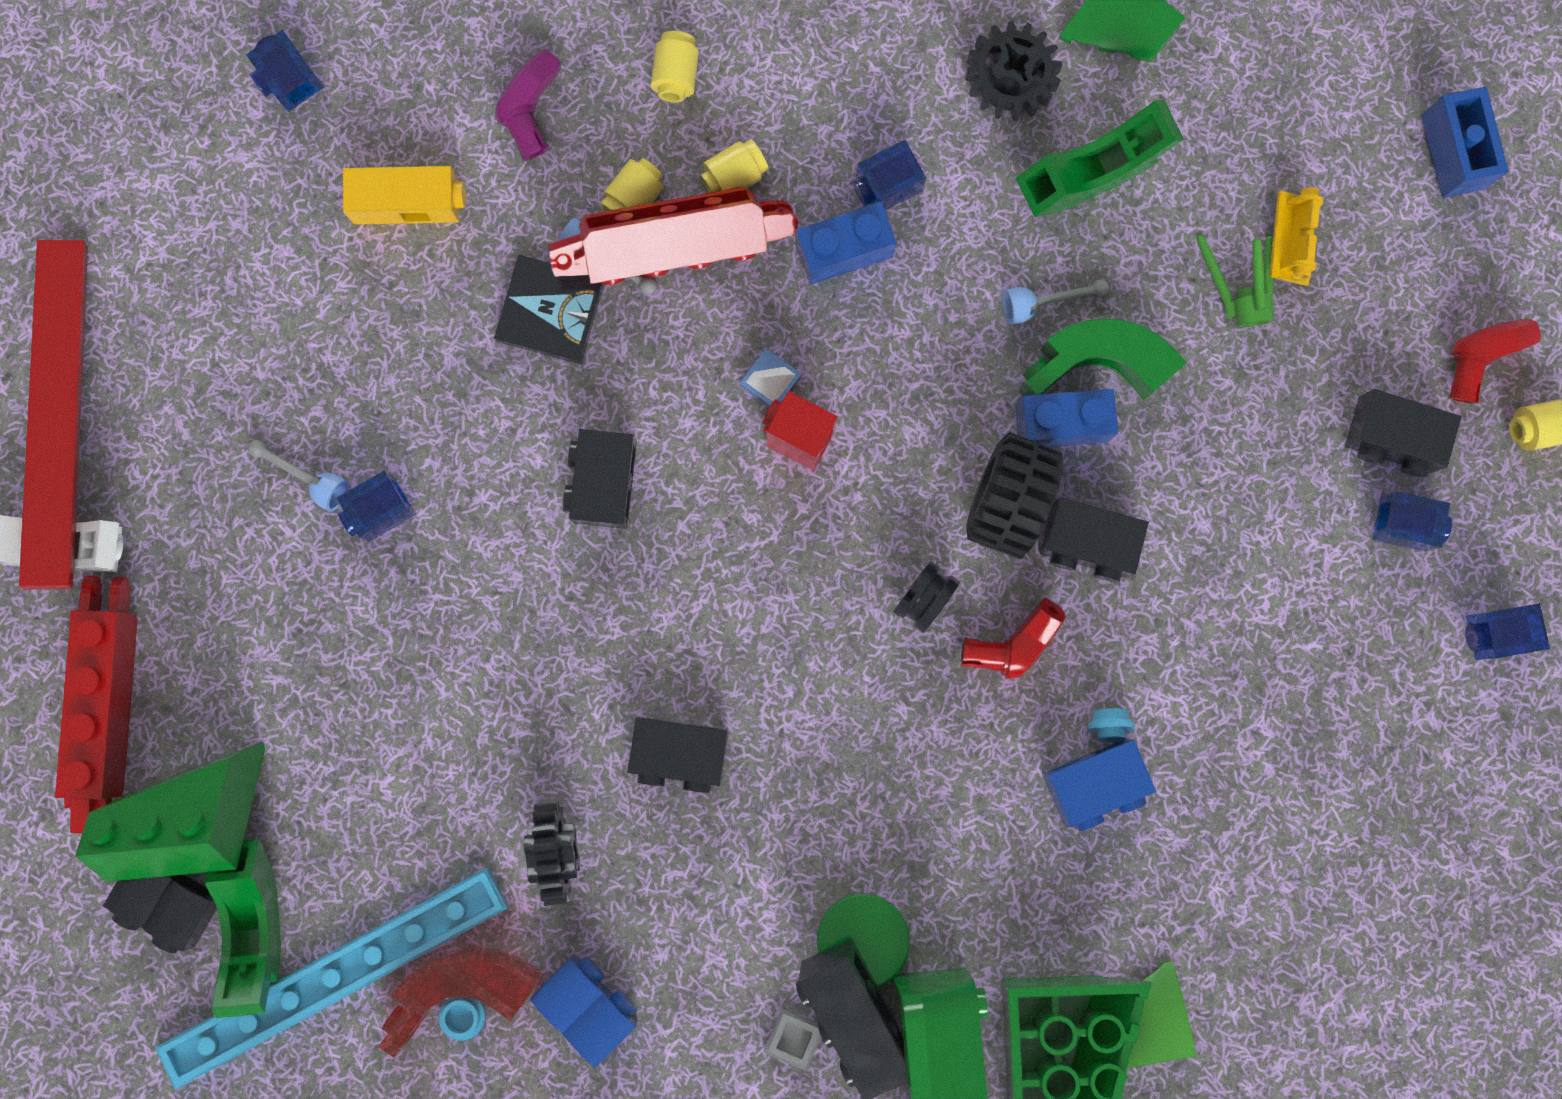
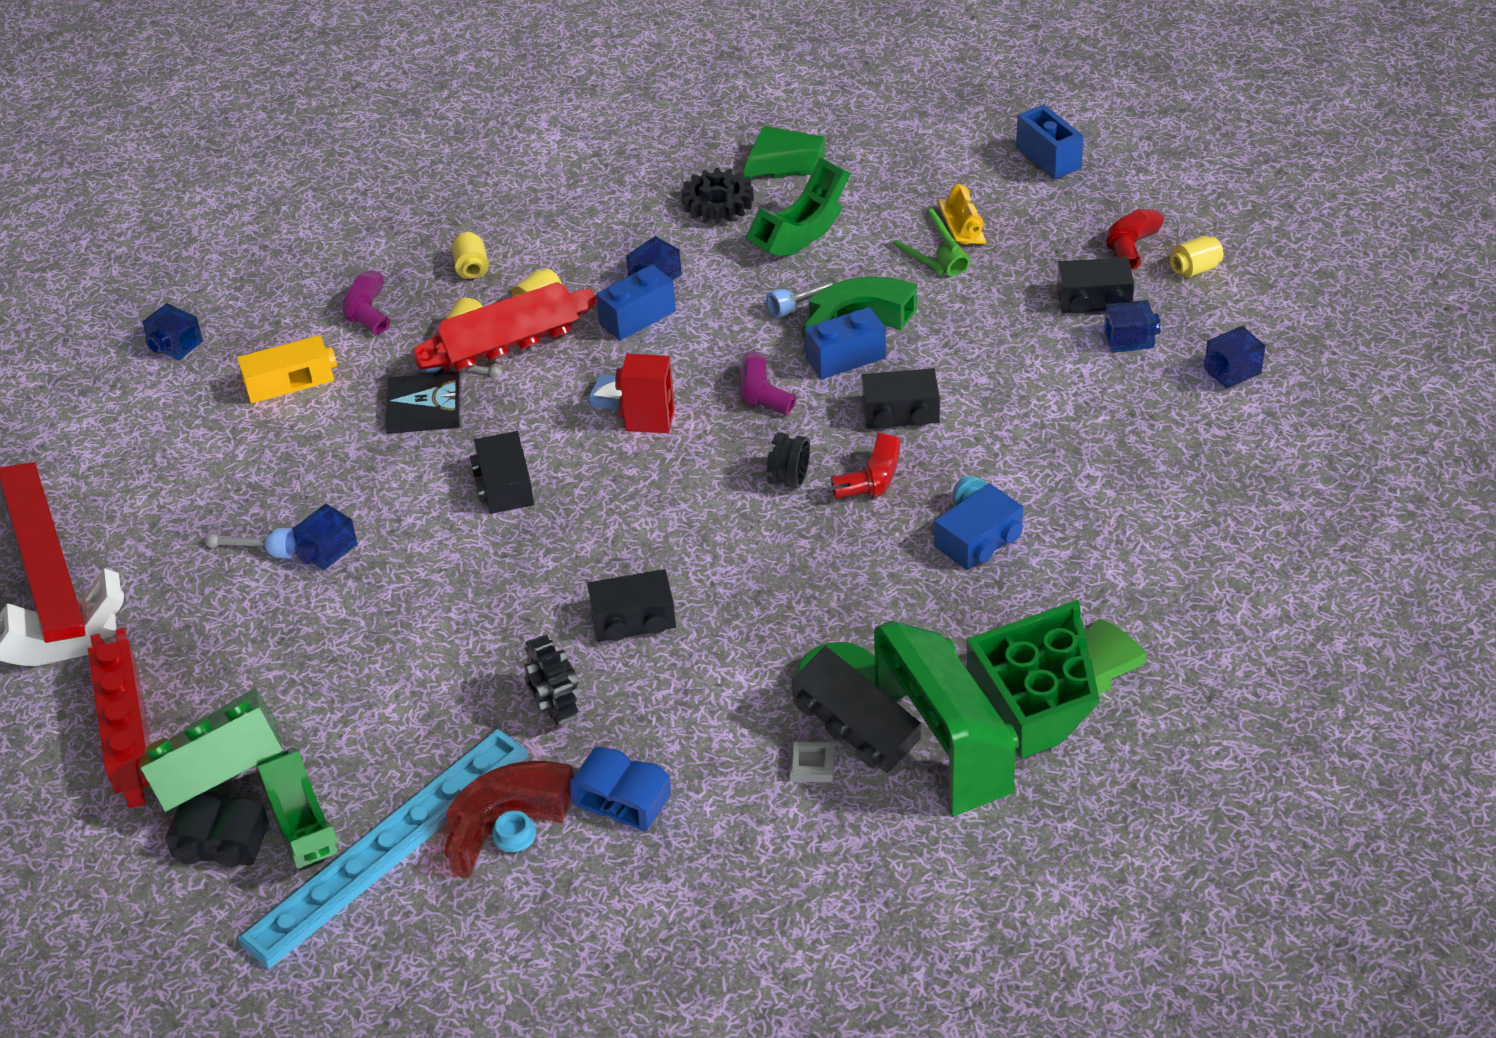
camera: 15 degrees left, 40 degrees down
(936, 438) = (756, 387): none -> magenta arm
(1015, 495) = (825, 377): black tyre -> none

